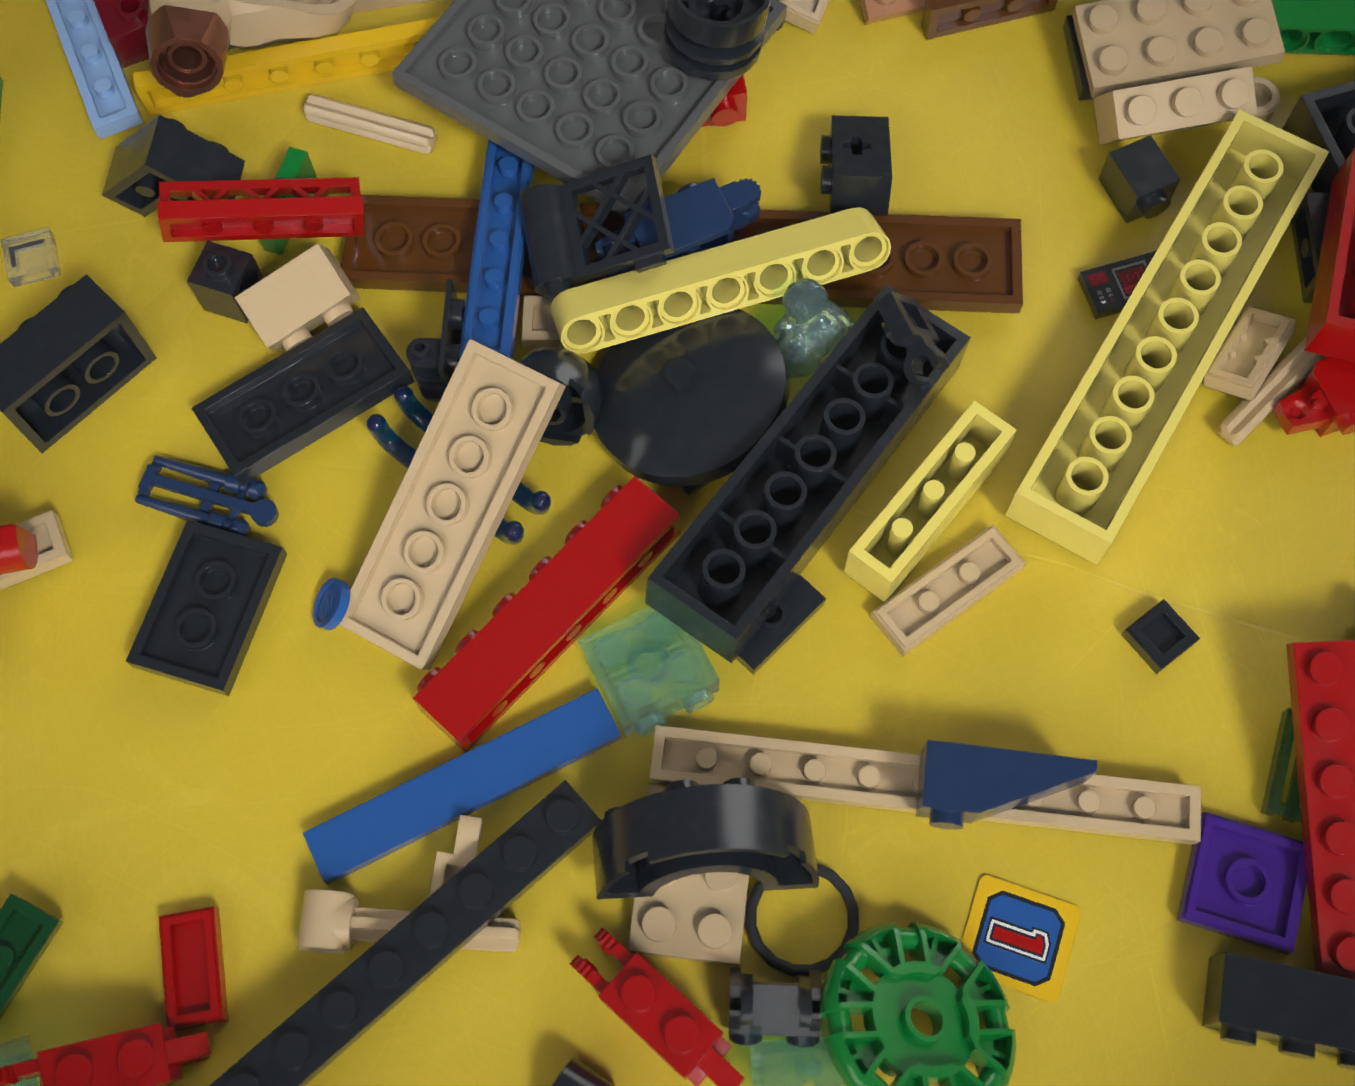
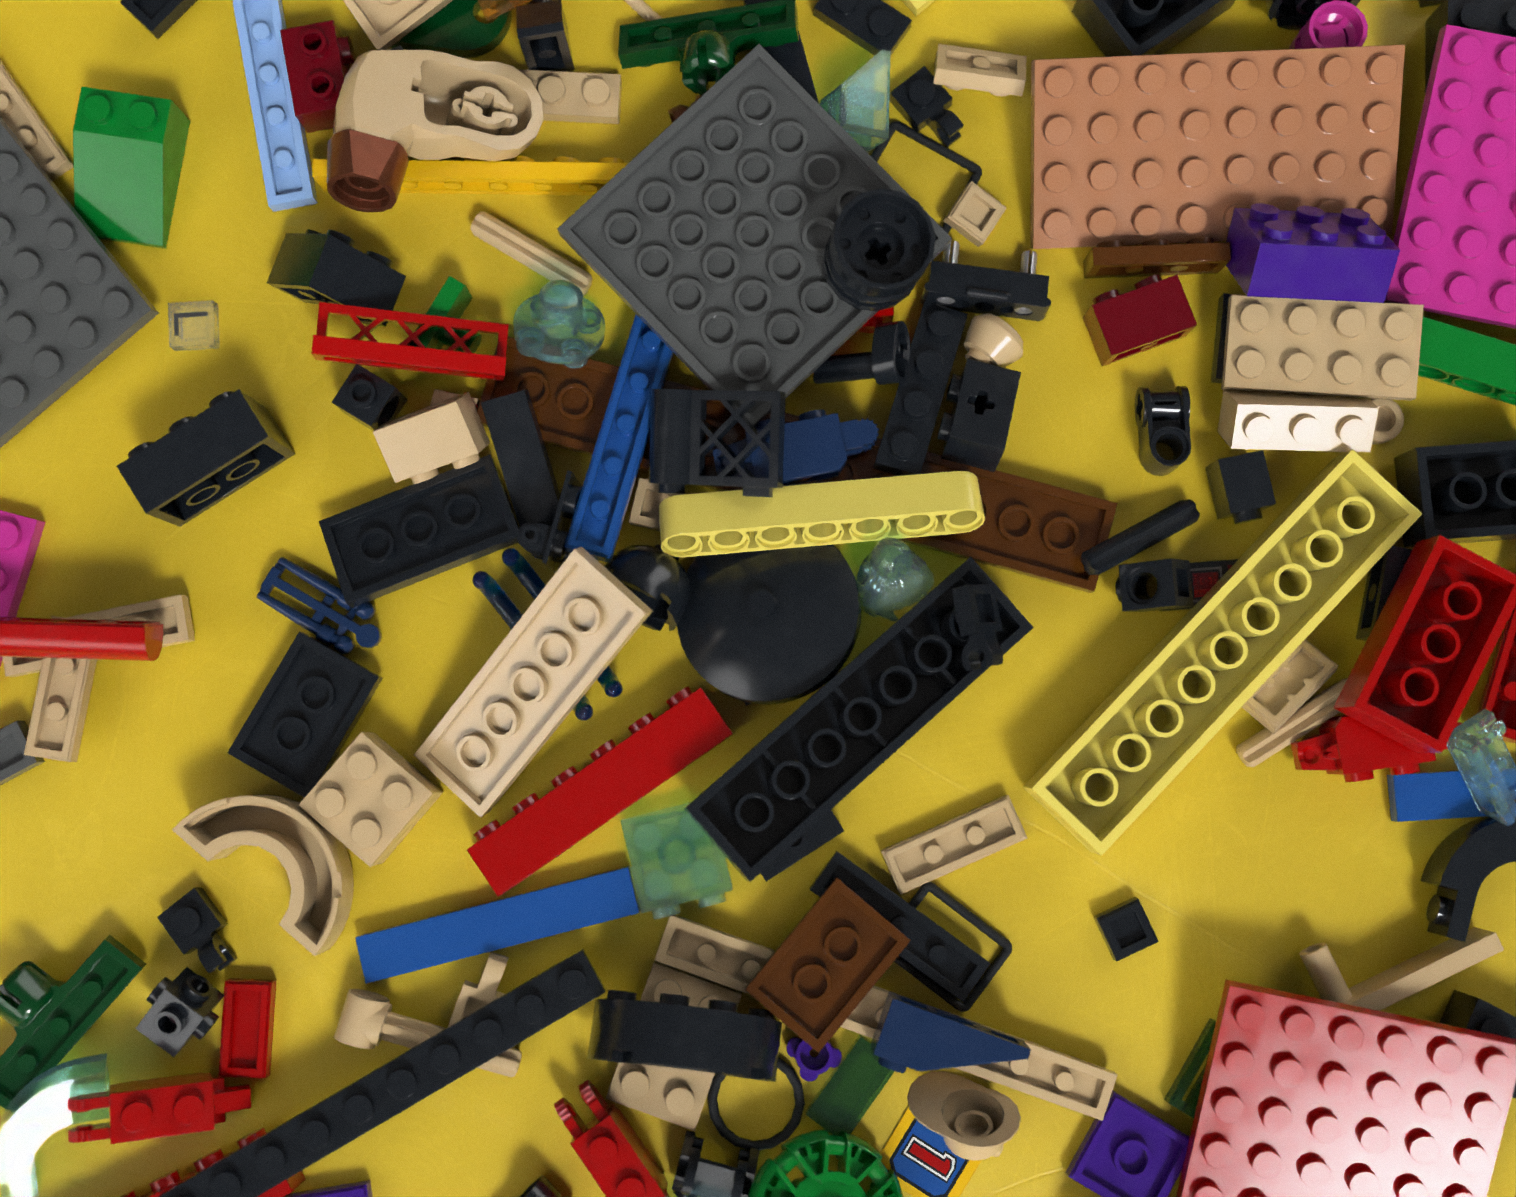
camera: 10 degrees right, 15 degrees up
(111, 956) = (180, 1011): none -> black brick
(116, 863) = (194, 925): none -> black plate
(191, 720) = (312, 856): none -> tan brick
(296, 673) = (370, 798): none -> tan brick
(331, 603) = (413, 737): blue piece -> none
(393, 292) = (523, 457): none -> black tile
(410, 168) = (559, 325): none -> clear light blue plate
(751, 136) = (885, 363): none -> black piece
(792, 156) = (921, 394): none -> black plate
(833, 61) = (988, 289): none -> black piece
(844, 731) = (827, 964): none -> reddish brown plate
(853, 96) = (993, 341): none -> tan cone
(870, 844) = (813, 1066): none -> dark purple plate
(908, 873) = (849, 1089): none -> clear green tile
(913, 684) = (931, 946): none -> black plate
(929, 501) = (958, 768): light yellow brick -> none
(980, 659) = (978, 923): none -> black piece
(991, 56) = (1139, 318): none -> dark red brick
(1045, 147) = (1164, 419): none -> black piece
(1046, 873) = (966, 1114): none -> tan piece
(1052, 244) = (1139, 537): none -> black axle
(1101, 289) = (1173, 586): none -> black brick

